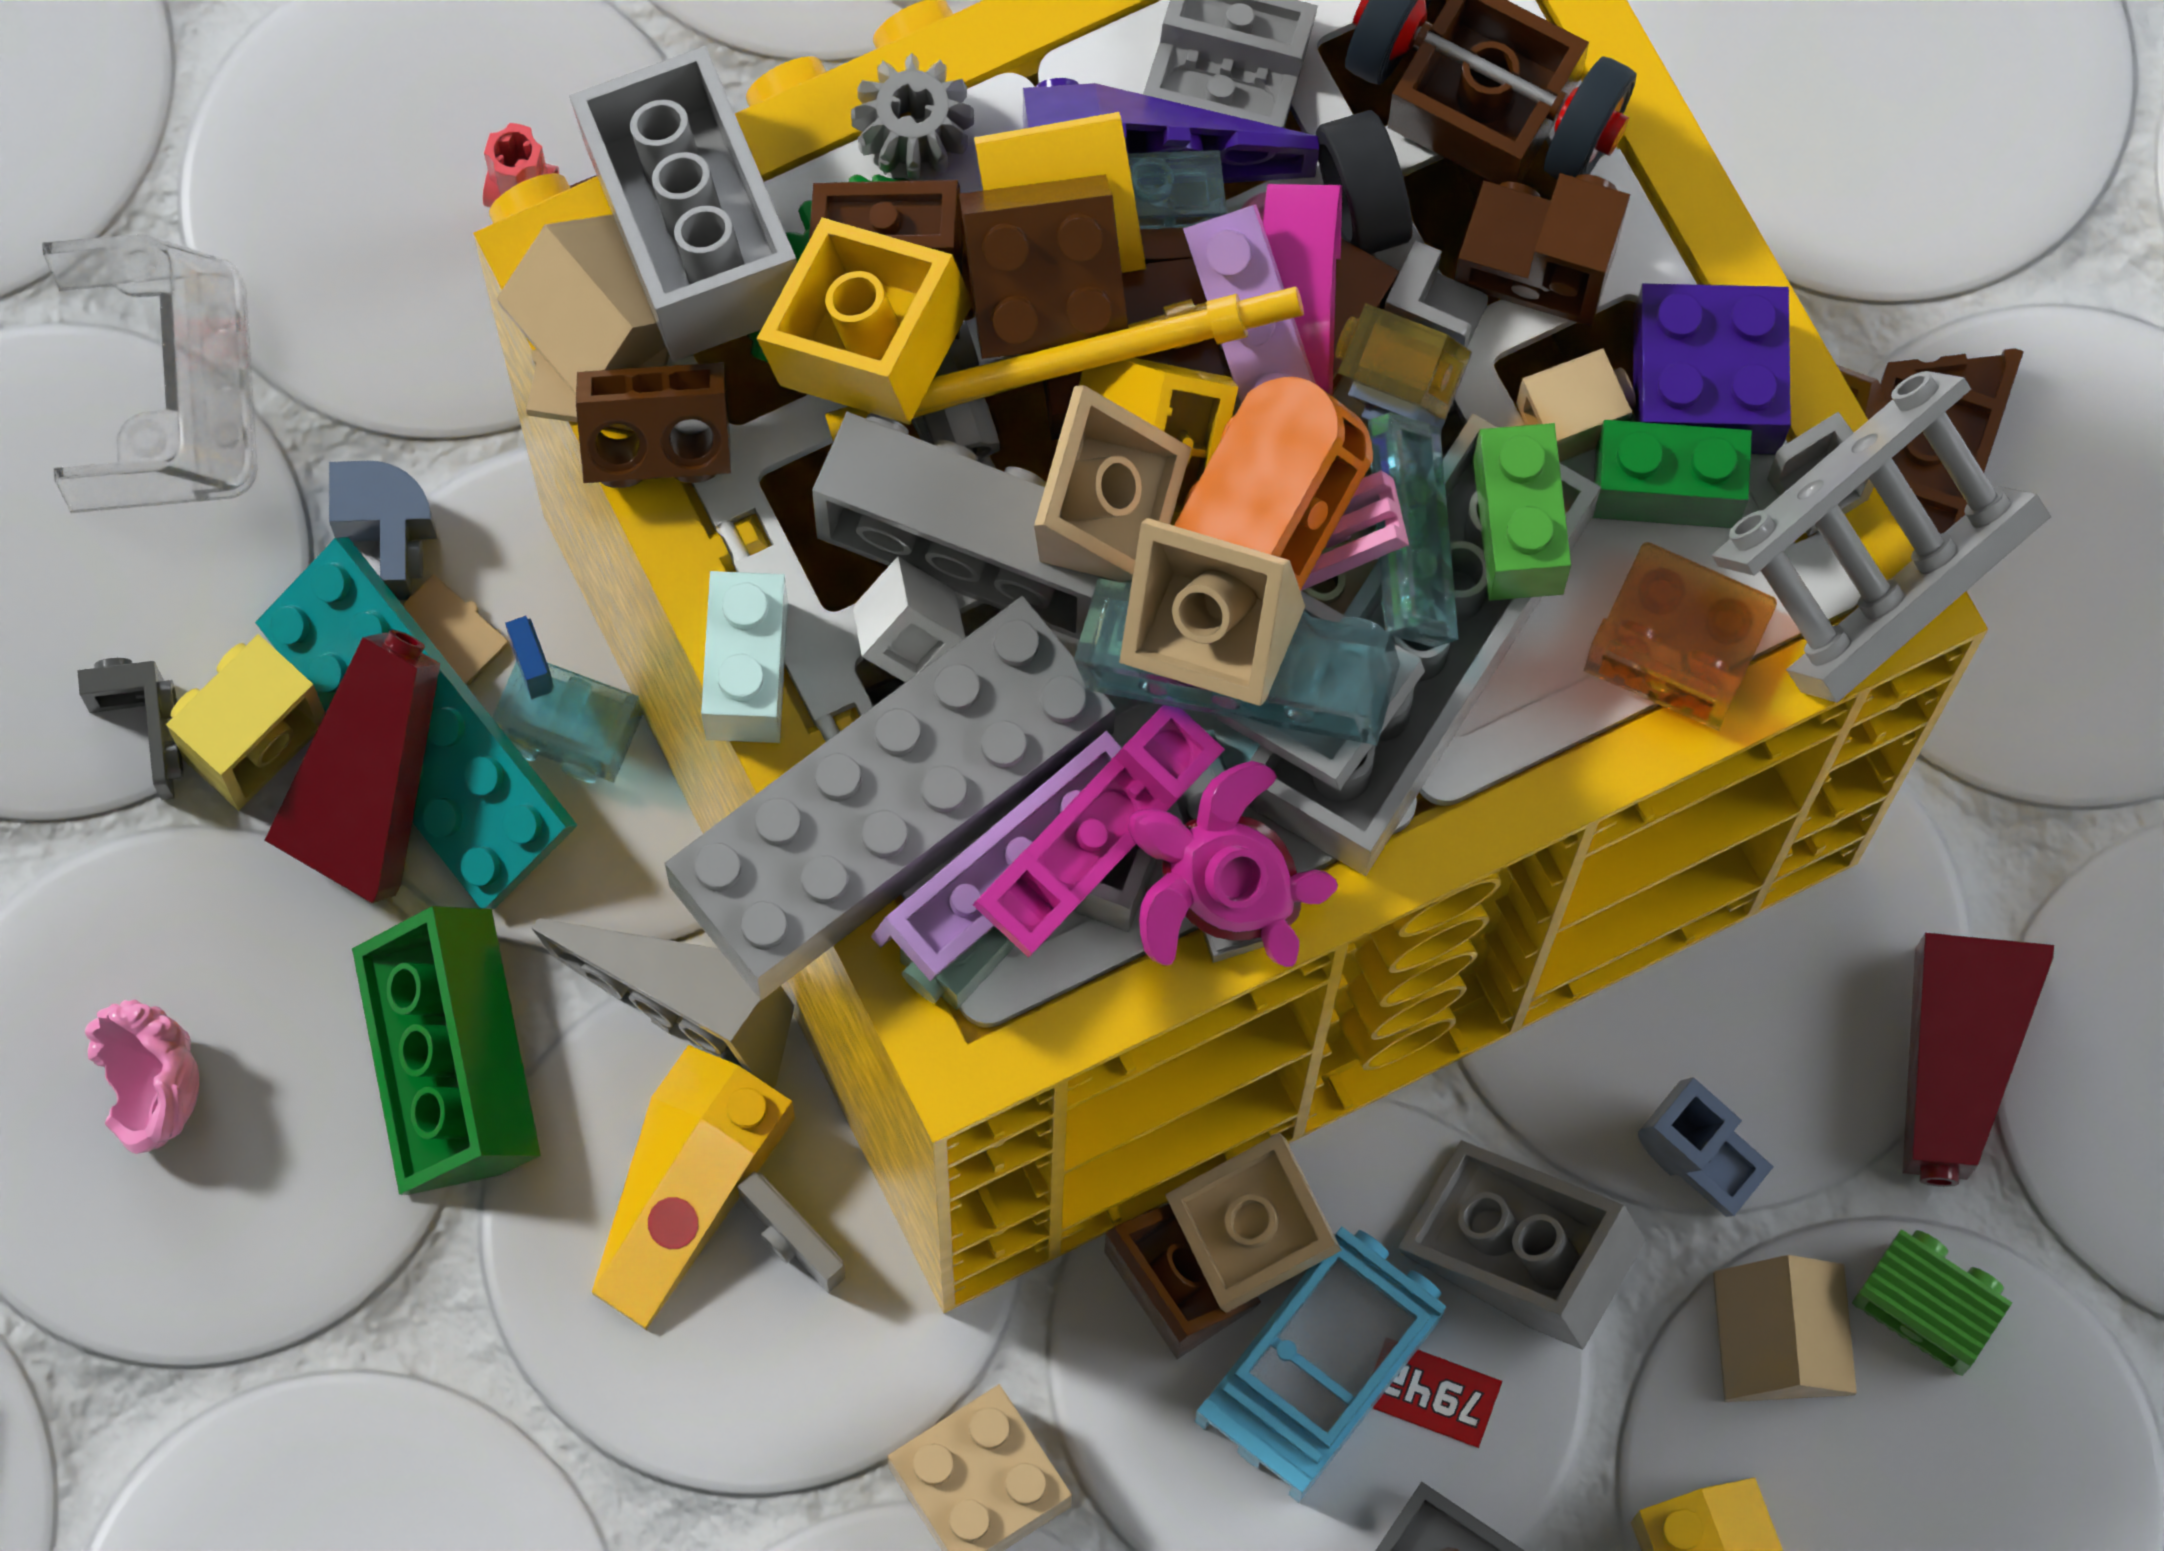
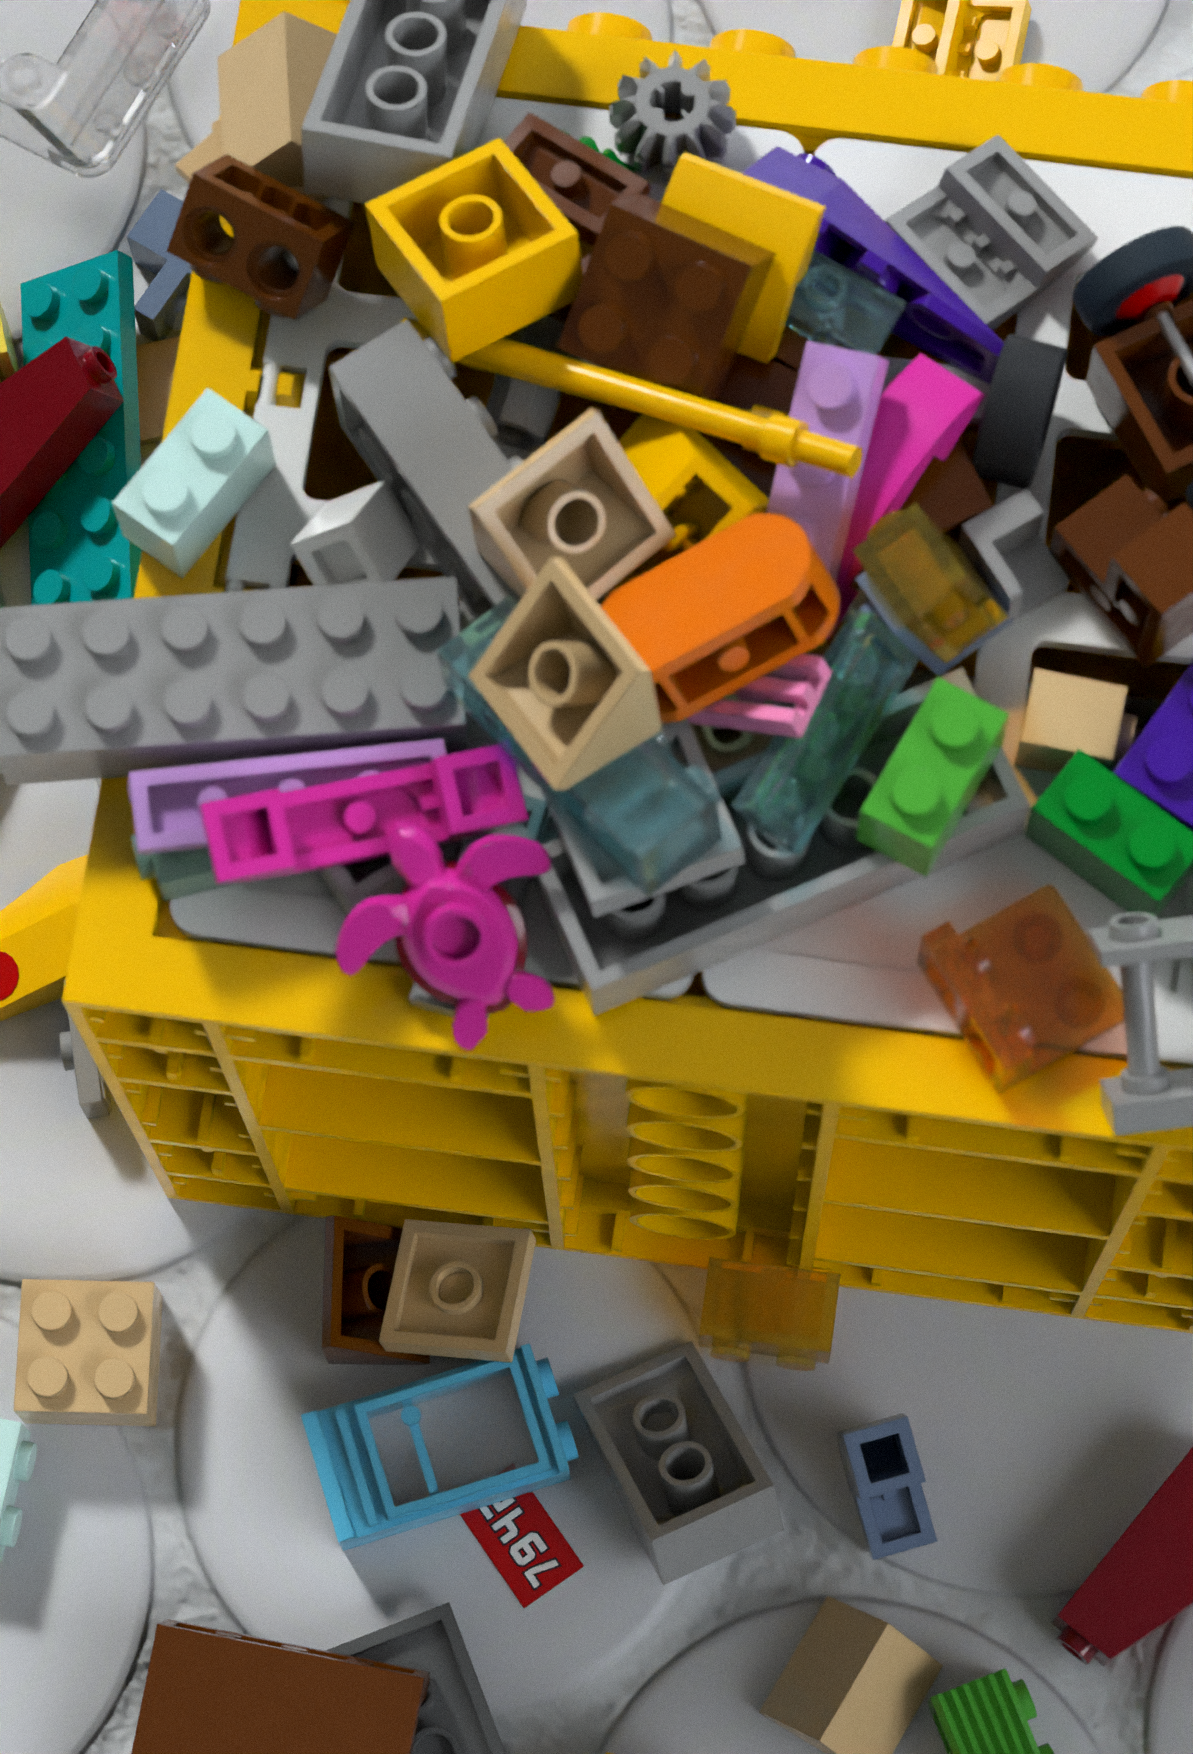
camera: 40 degrees right, 0 degrees up
(1510, 1074) = (768, 1313): none -> clear yellow brick

